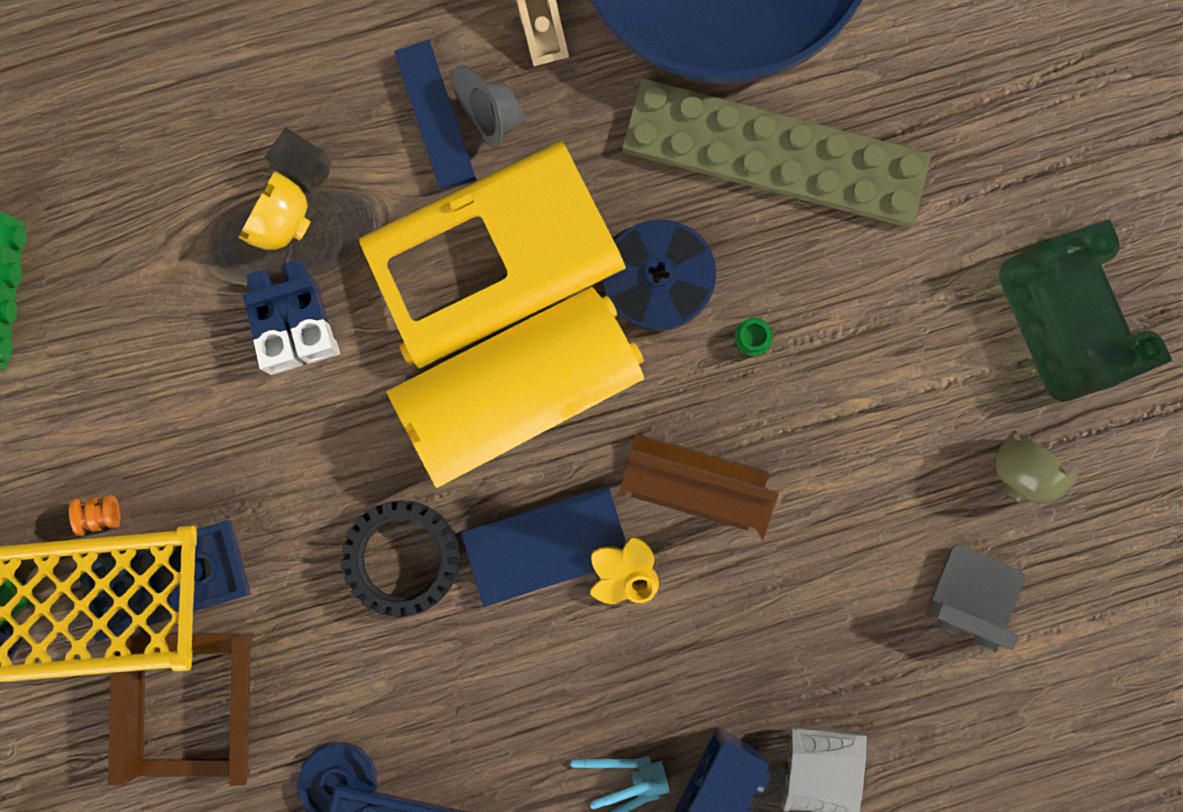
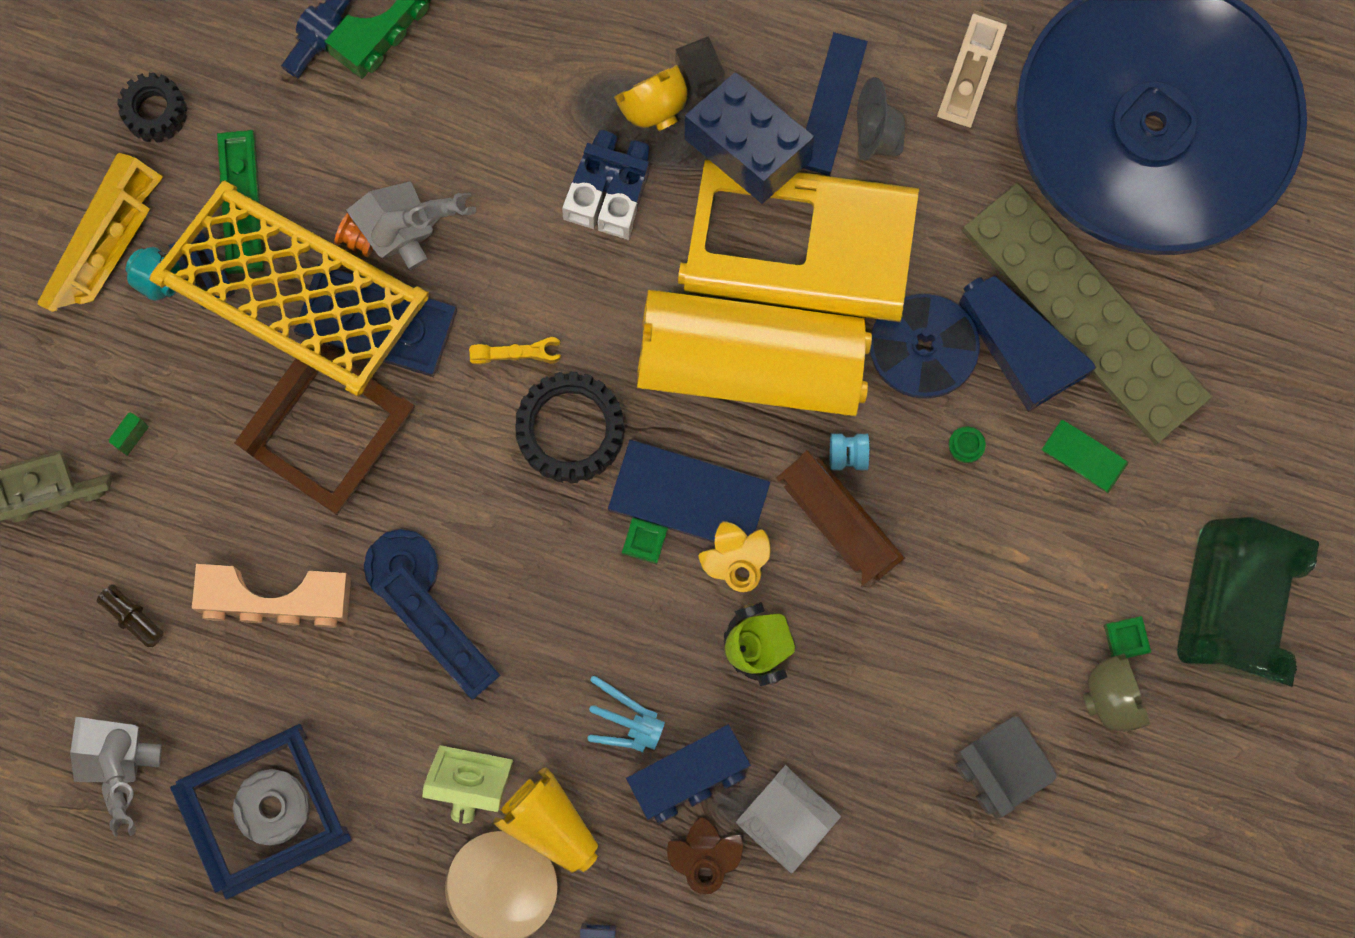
camera: 30 degrees right, 5 degrees down
(121, 480) = (398, 221): none -> light grey torso
(283, 542) = (484, 353): none -> yellow piece
(382, 194) = (748, 137): none -> dark blue brick
(534, 612) = (644, 541): none -> green tile
(666, 408) = (857, 451): none -> medium azure wheel
(697, 638) = (758, 644): none -> lime cap
(742, 215) = (1023, 343): none -> dark blue slope
(861, 278) = (1085, 456): none -> green slope
(1001, 412) = (1127, 637): none -> green tile

